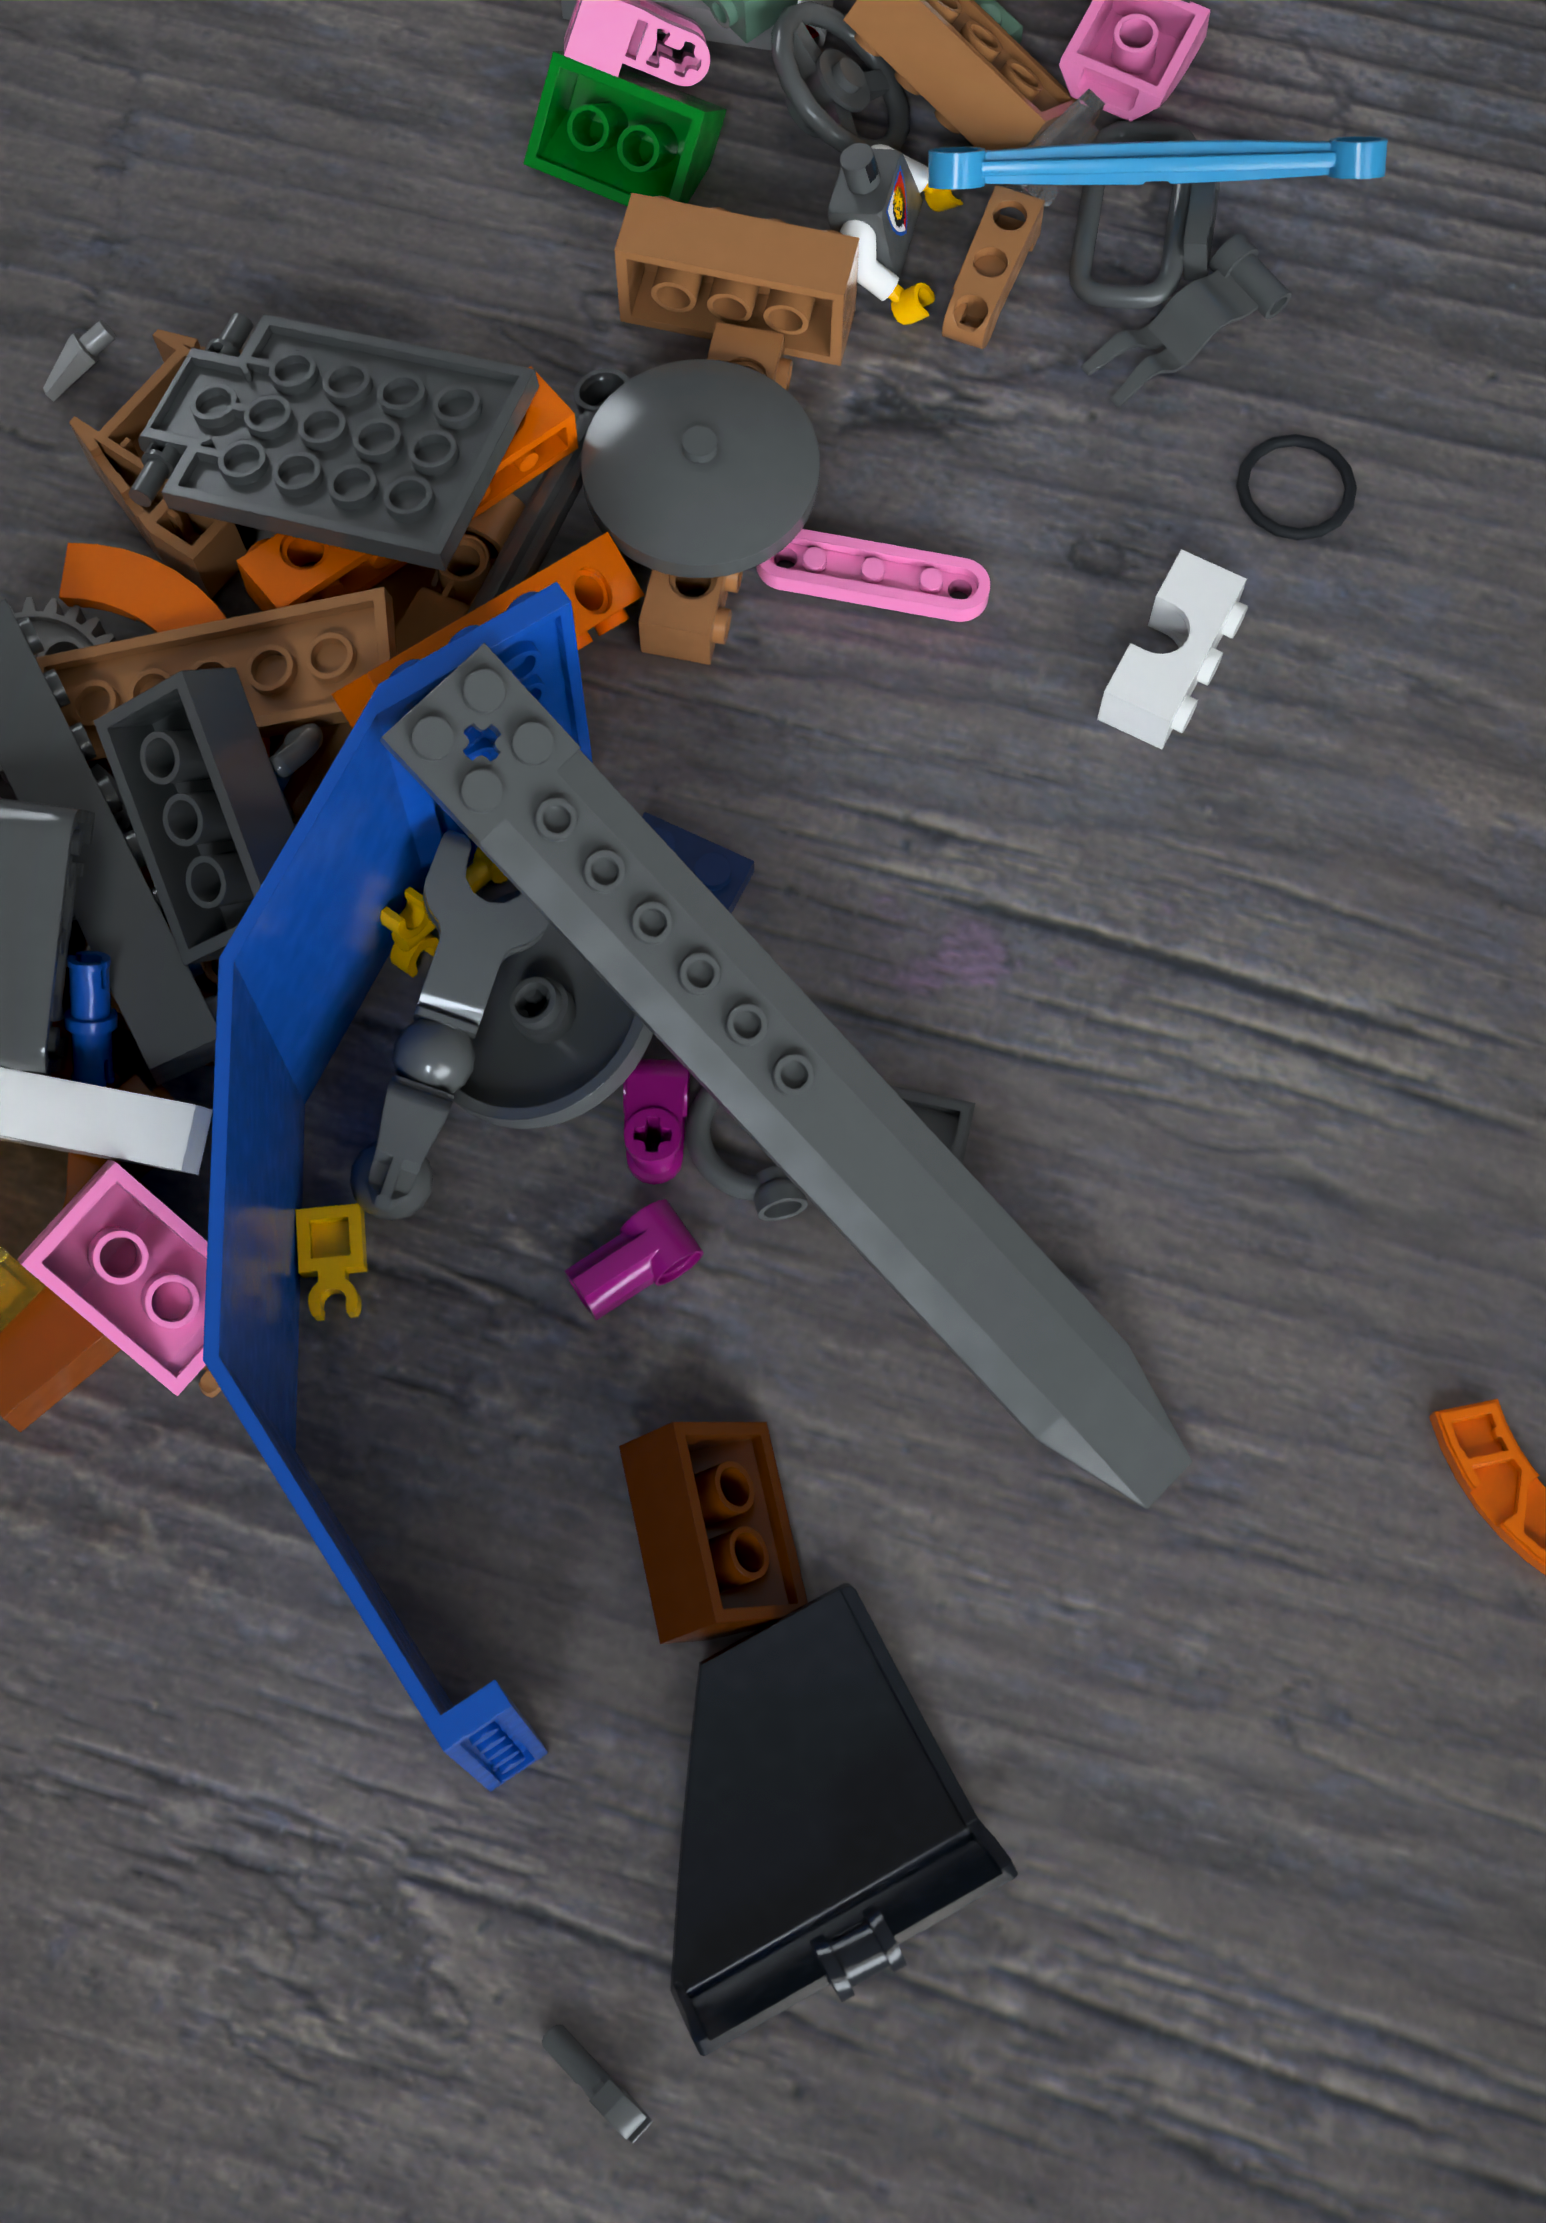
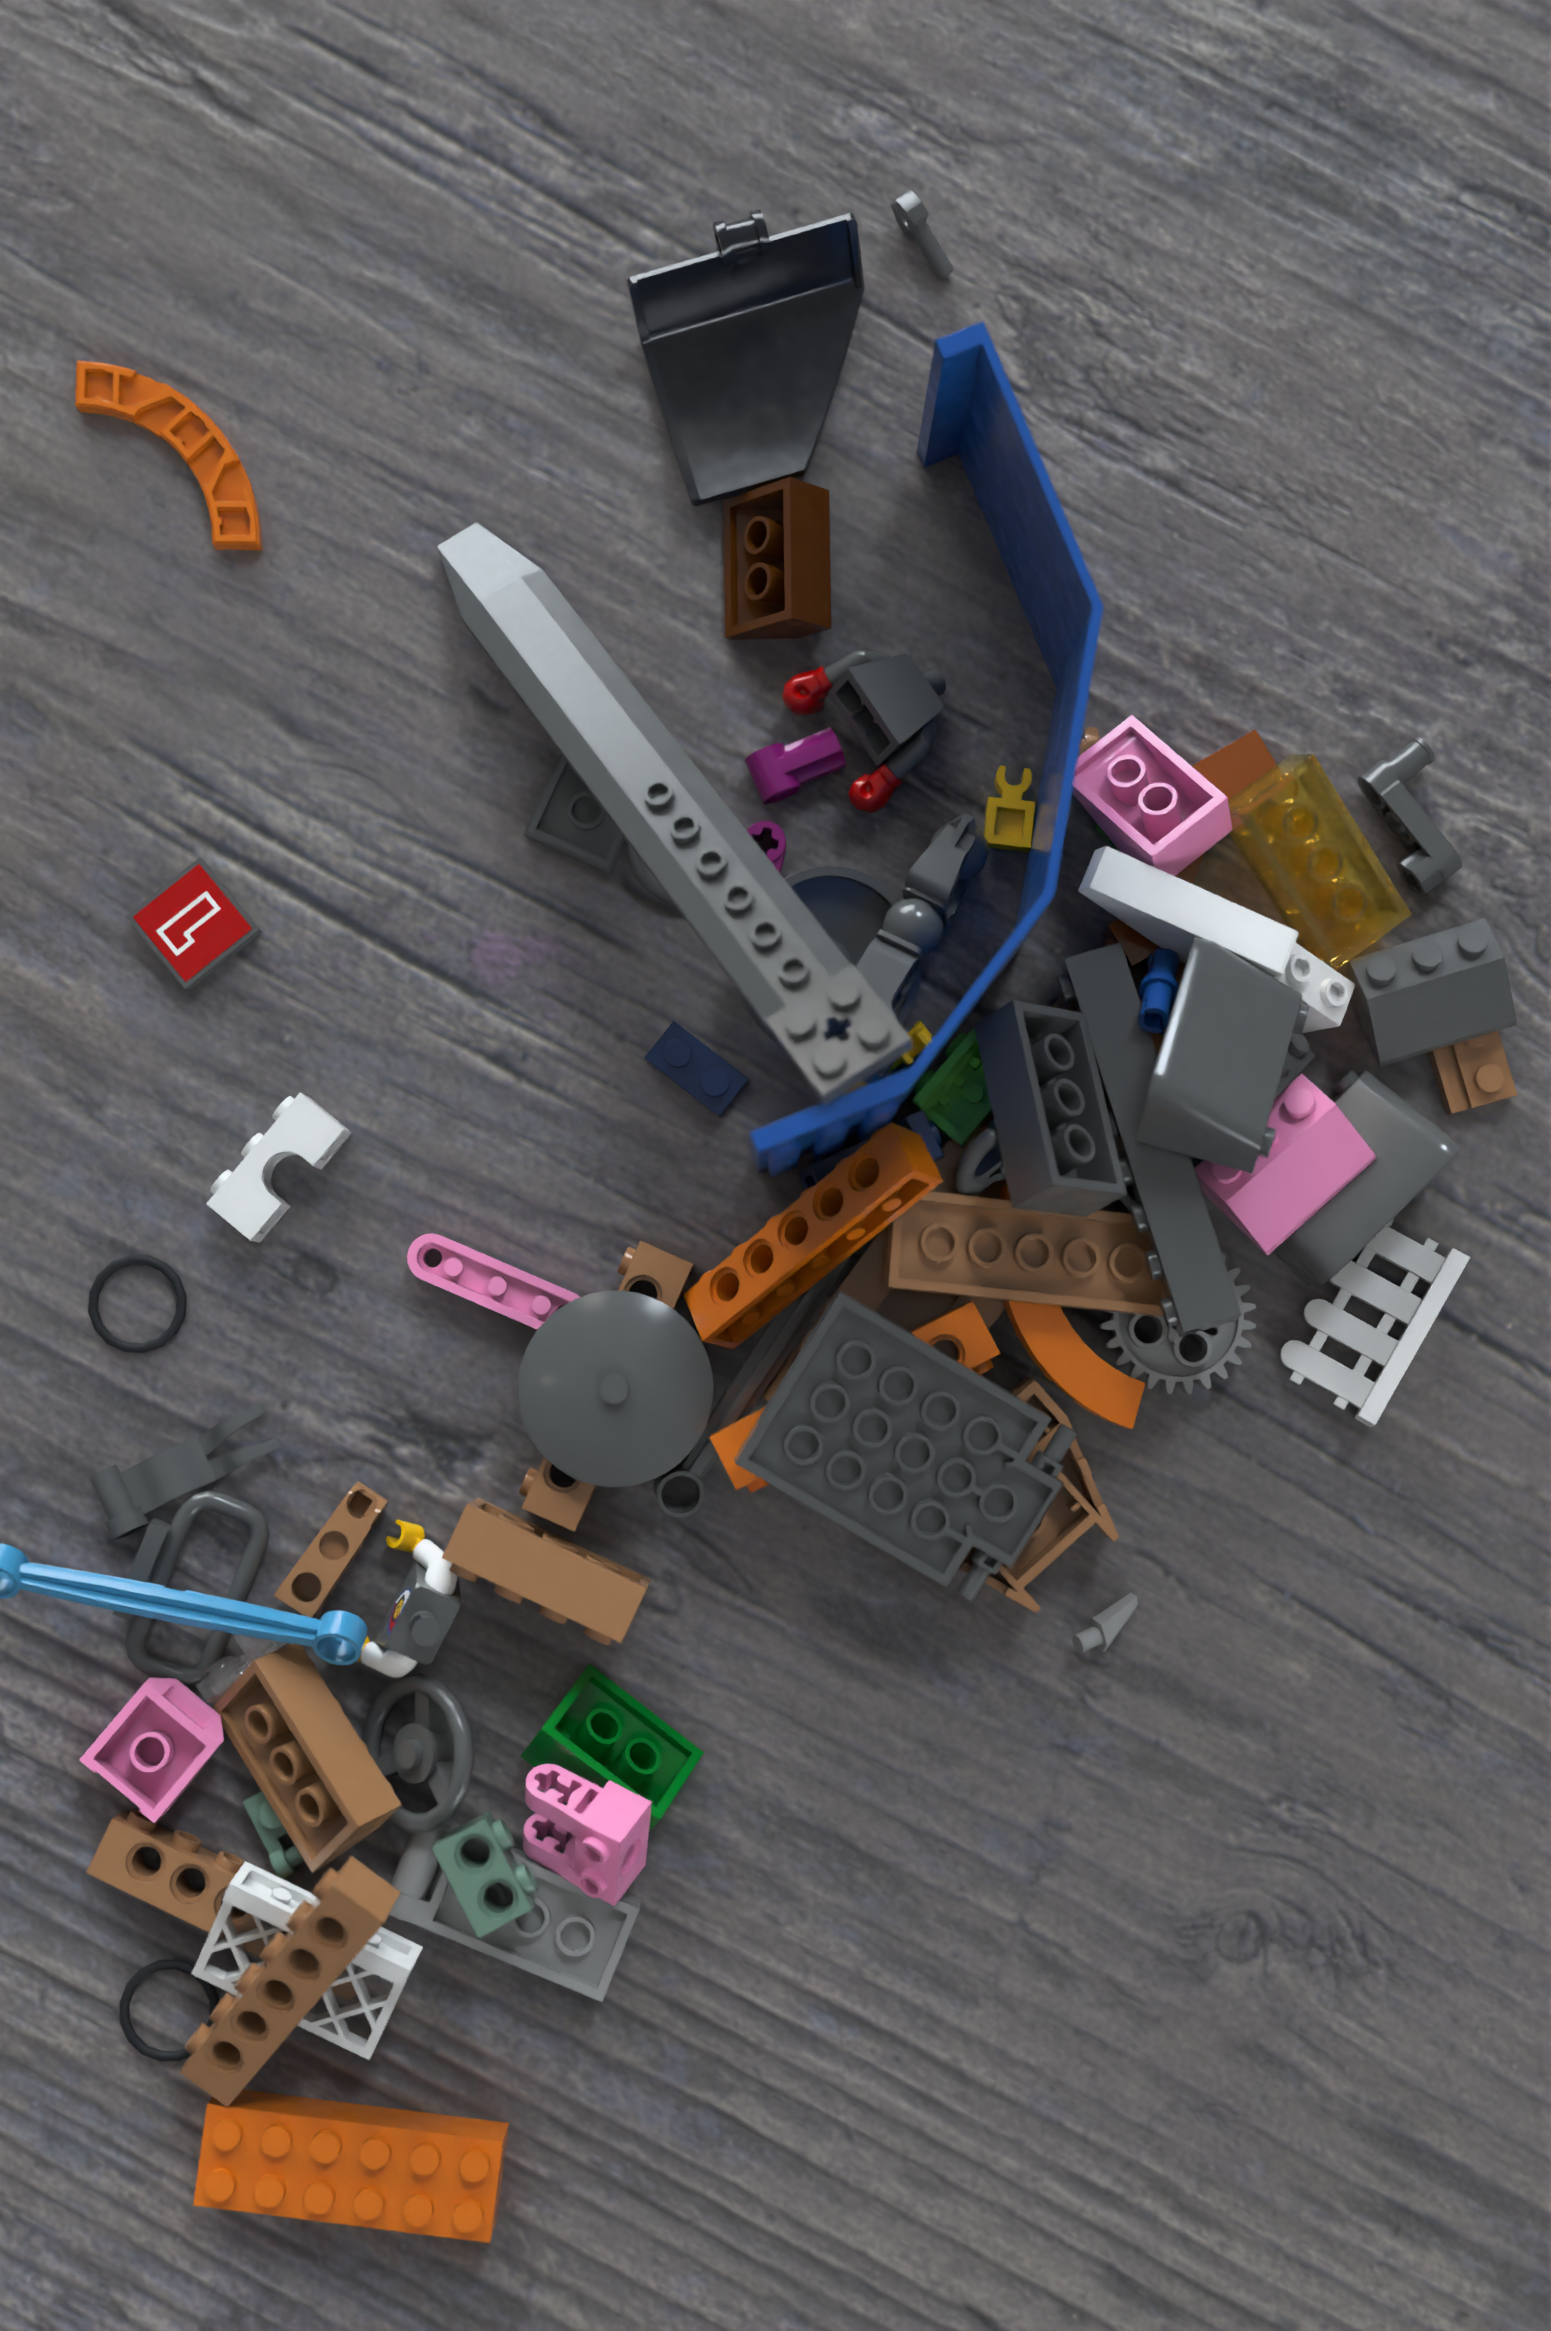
camera: 170 degrees left, 15 degrees up
(523, 1349) = (887, 708): none -> dark grey torso
(1365, 914) = (194, 924): none -> red tile

